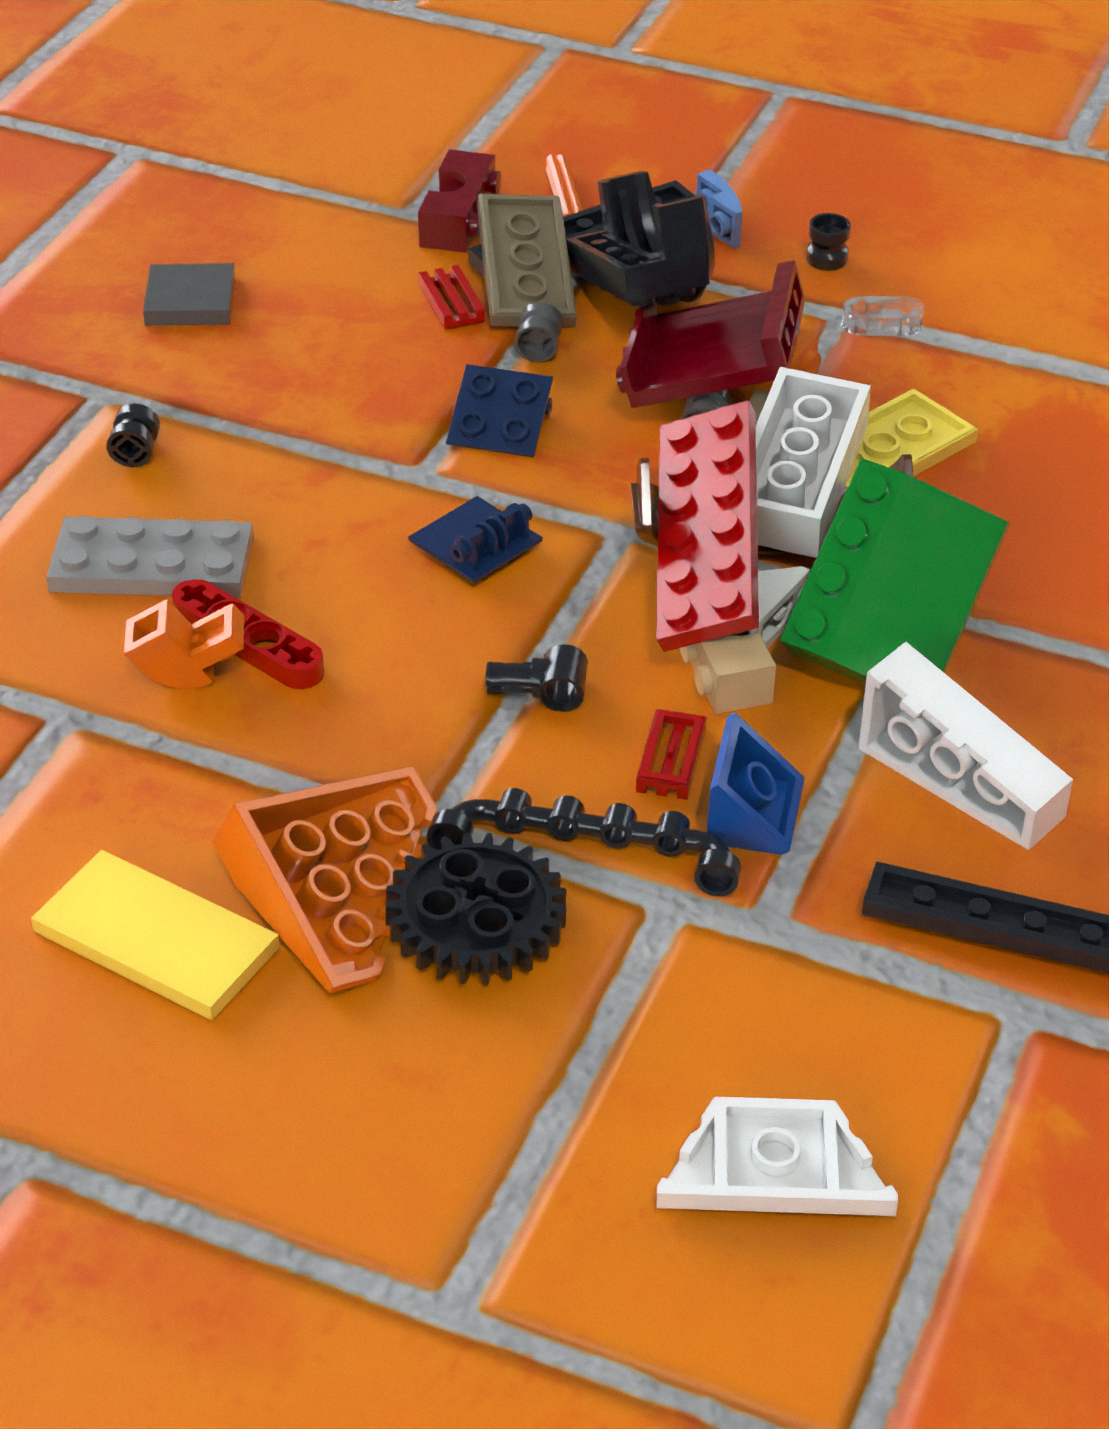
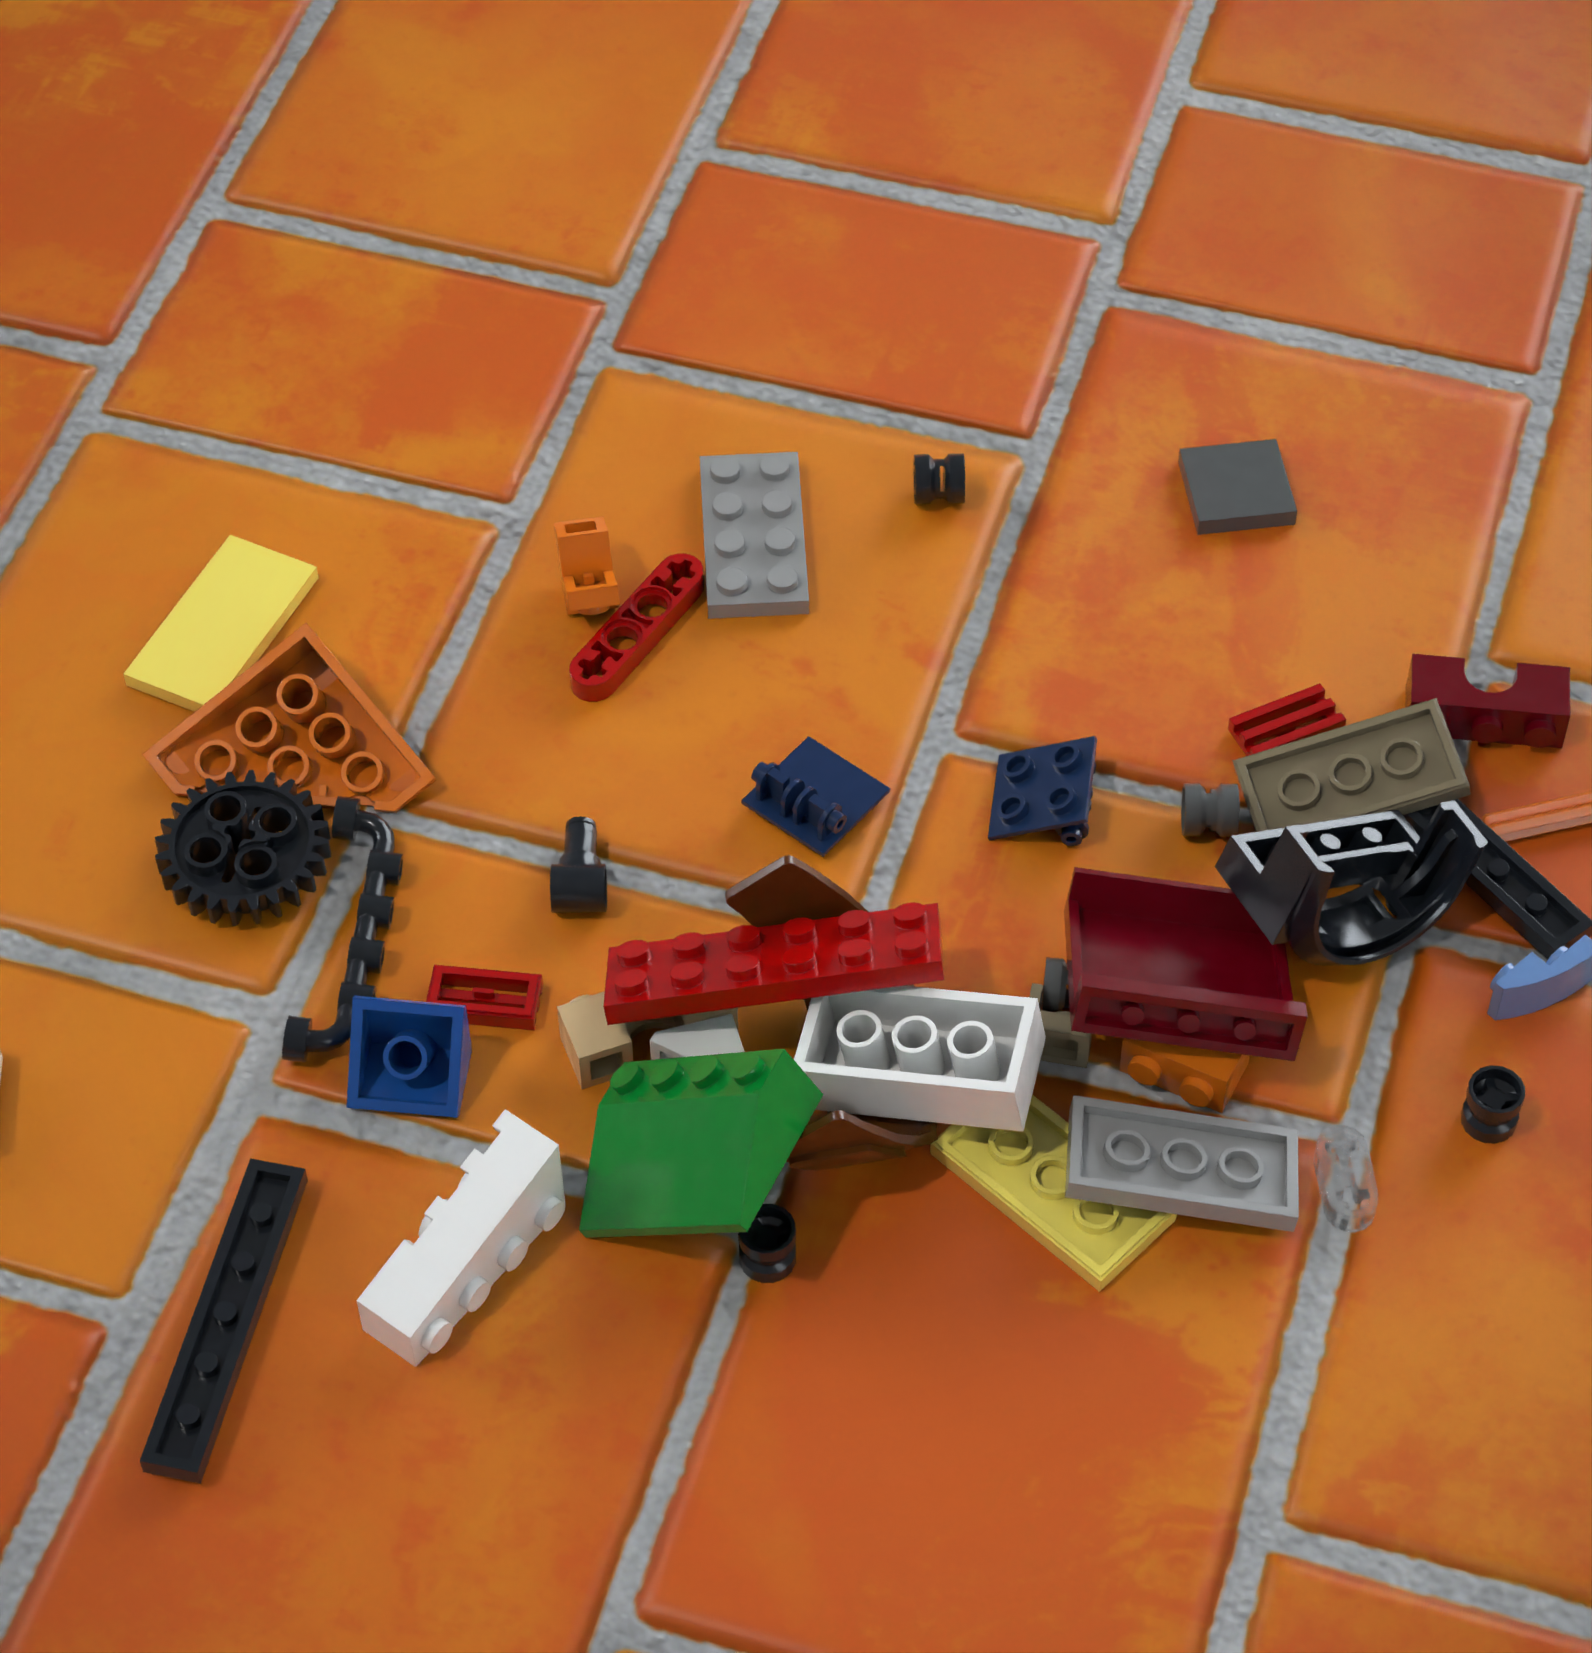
camera: 85 degrees right, 10 degrees up
(892, 361) = (1182, 1163): none -> light grey plate

